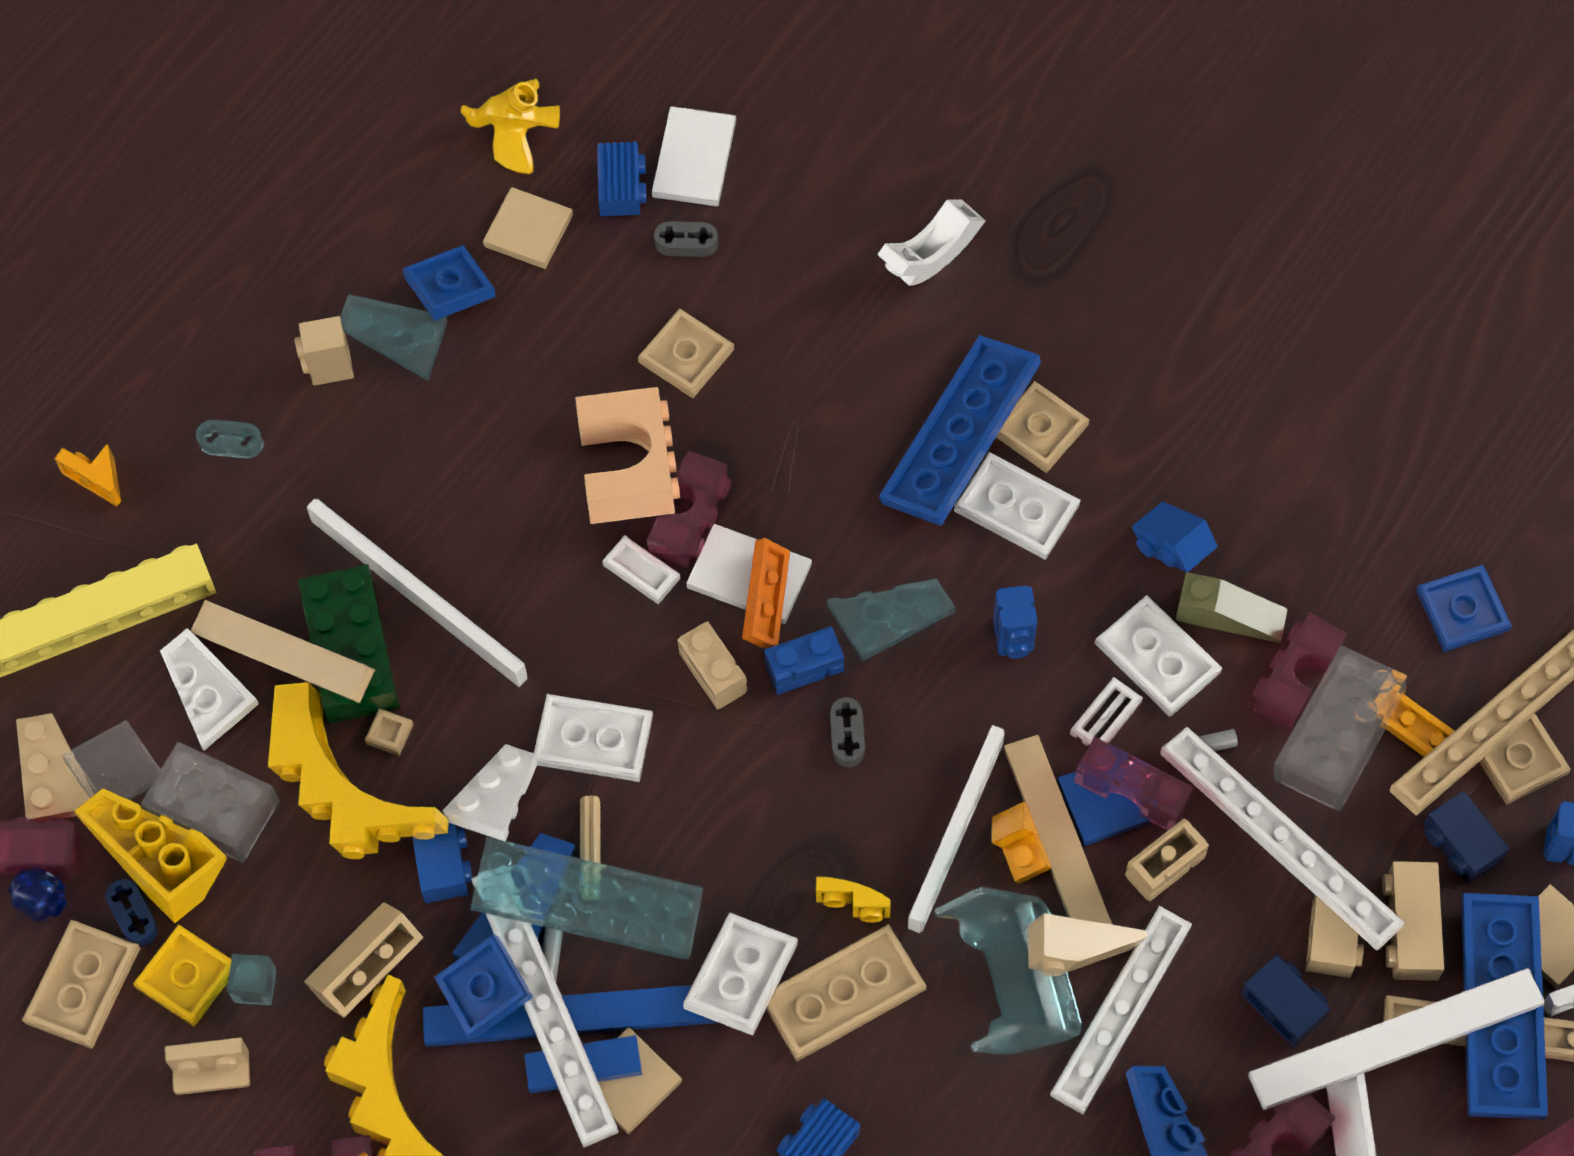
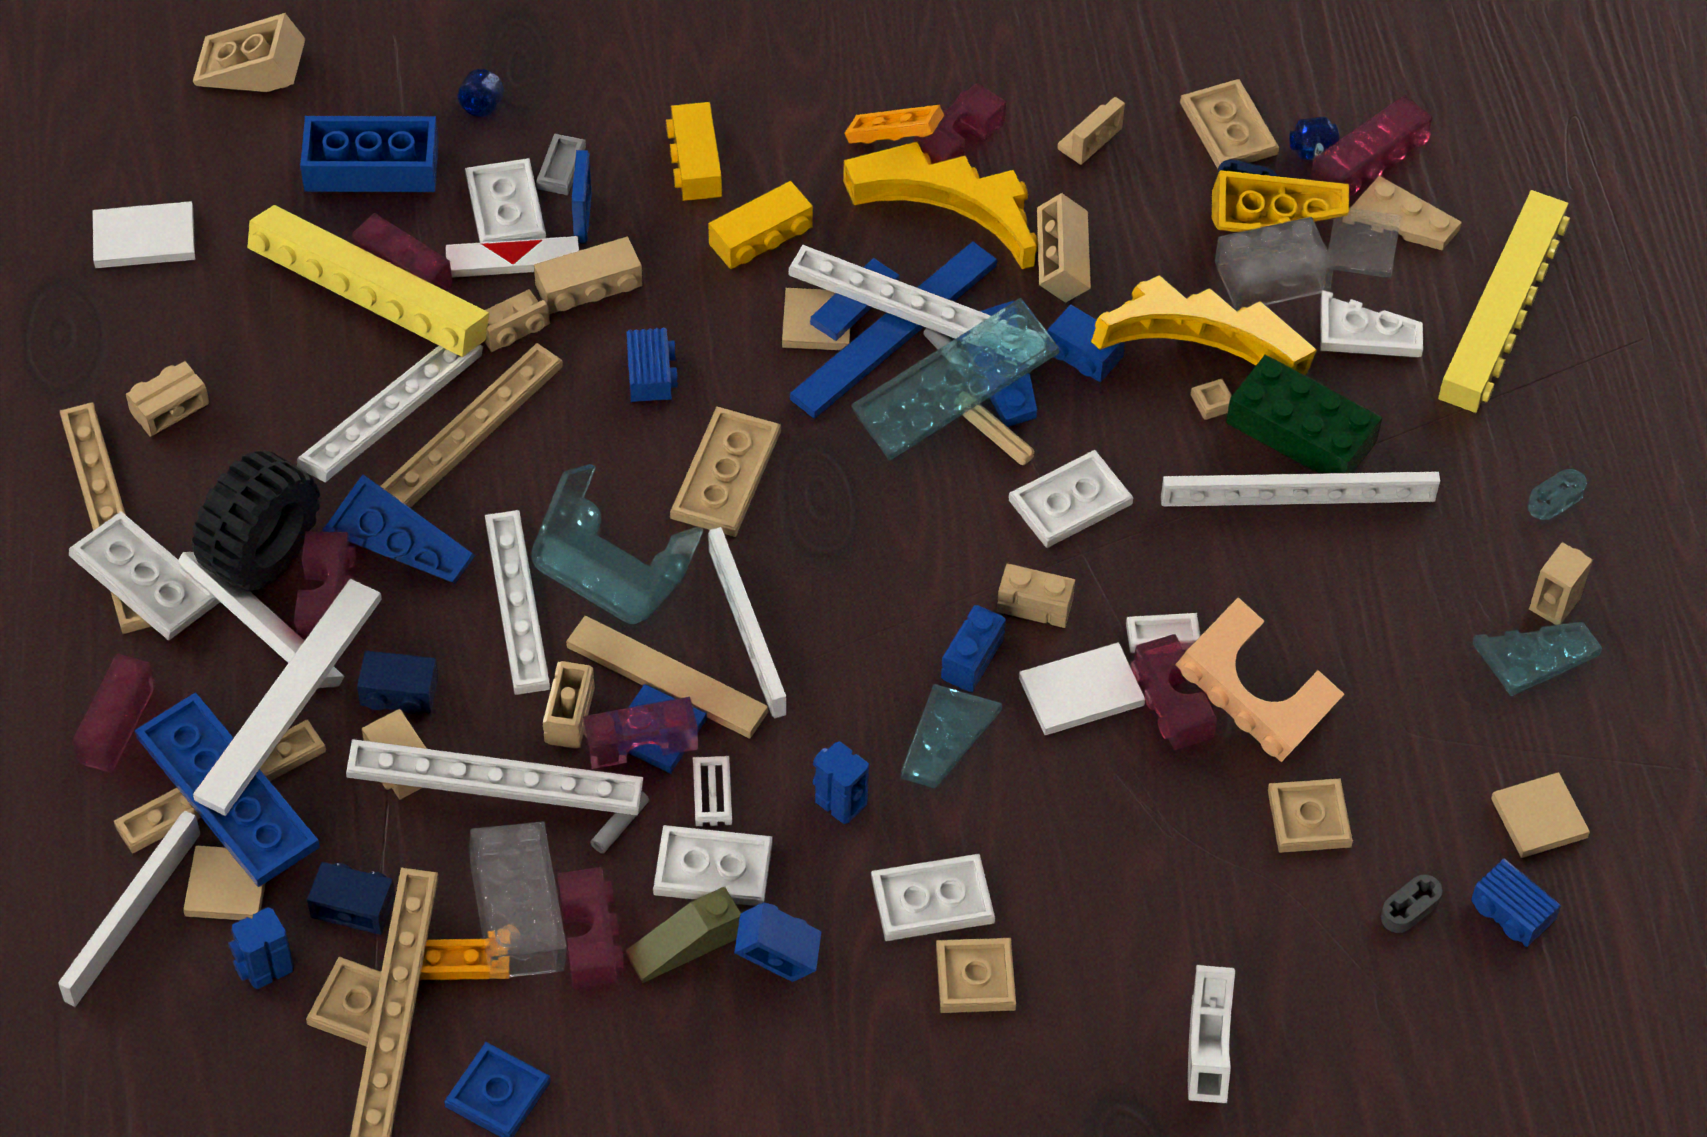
camera: 135 degrees right, 10 degrees down
(95, 476) = (1610, 394): light orange slope -> none
(185, 975) = (1170, 174): yellow tile -> none
(251, 979) = (1122, 191): clear light blue brick -> none
(282, 651) = (1336, 366): tan tile -> none
(448, 282) = (1543, 717): blue tile -> none
(483, 987) = (966, 284): blue tile -> none
(493, 794) = (1091, 389): white wing -> none
(511, 116) = (1655, 879): yellow animal -> none
(694, 156) = (1484, 979): white tile -> none
(740, 973) = (806, 423): white tile -> none
(766, 594) = (1047, 664): orange plate -> none
(855, 731) = (890, 636): dark grey beam -> none
(867, 903) = (768, 528): yellow slope -> none
(960, 430) = (1033, 912): blue plate -> none
(1020, 842) = (696, 648): light orange slope -> none
(1068, 943) = (581, 589): tan slope -> none
(1415, 899) = (344, 807): tan brick -> none

